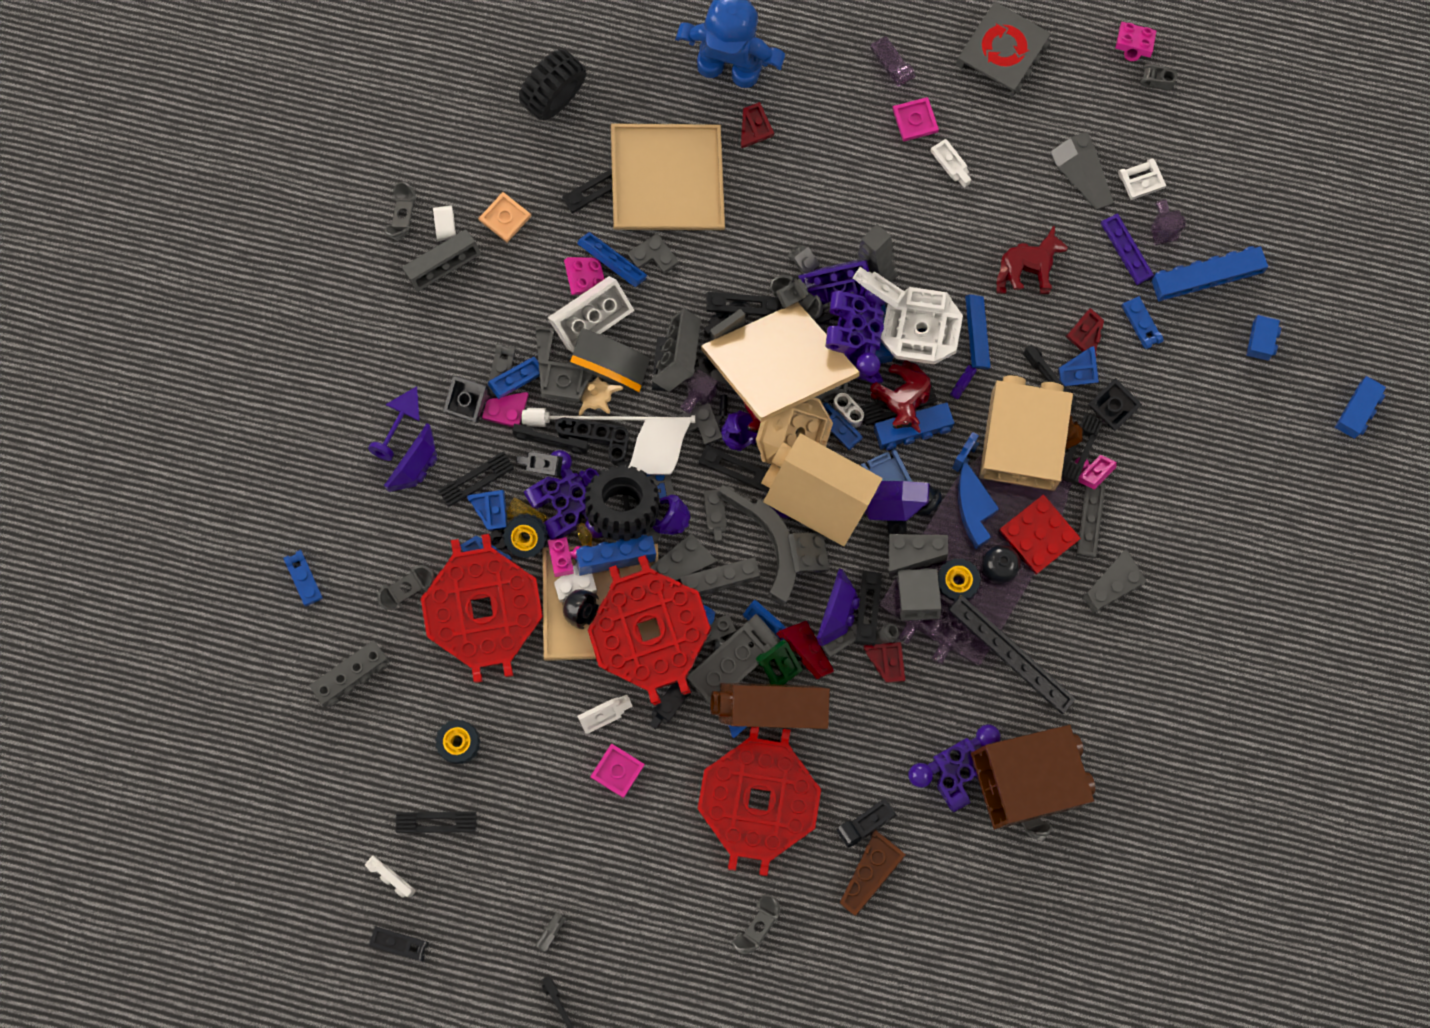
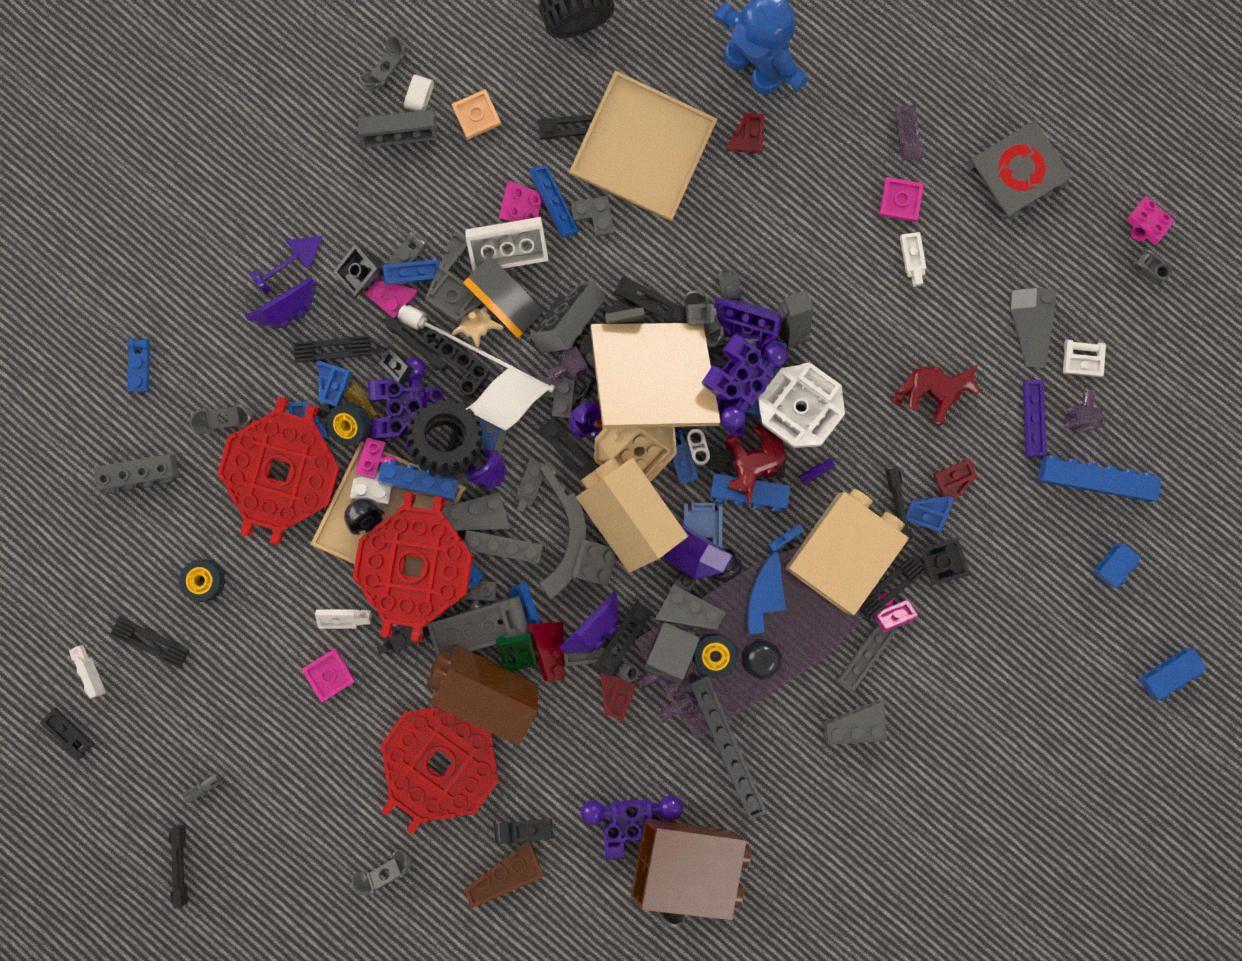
camera: 30 degrees right, 10 degrees up
(584, 535) = (401, 449): clear yellow tile -> none
(879, 286) = (780, 350): white hinge -> none
(977, 332) = (854, 430): blue tile -> none
(1039, 534) = (812, 648): red plate -> none
(1074, 434) = (893, 572): reddish brown plate -> none
(1142, 322) = (1011, 495): blue plate -> none

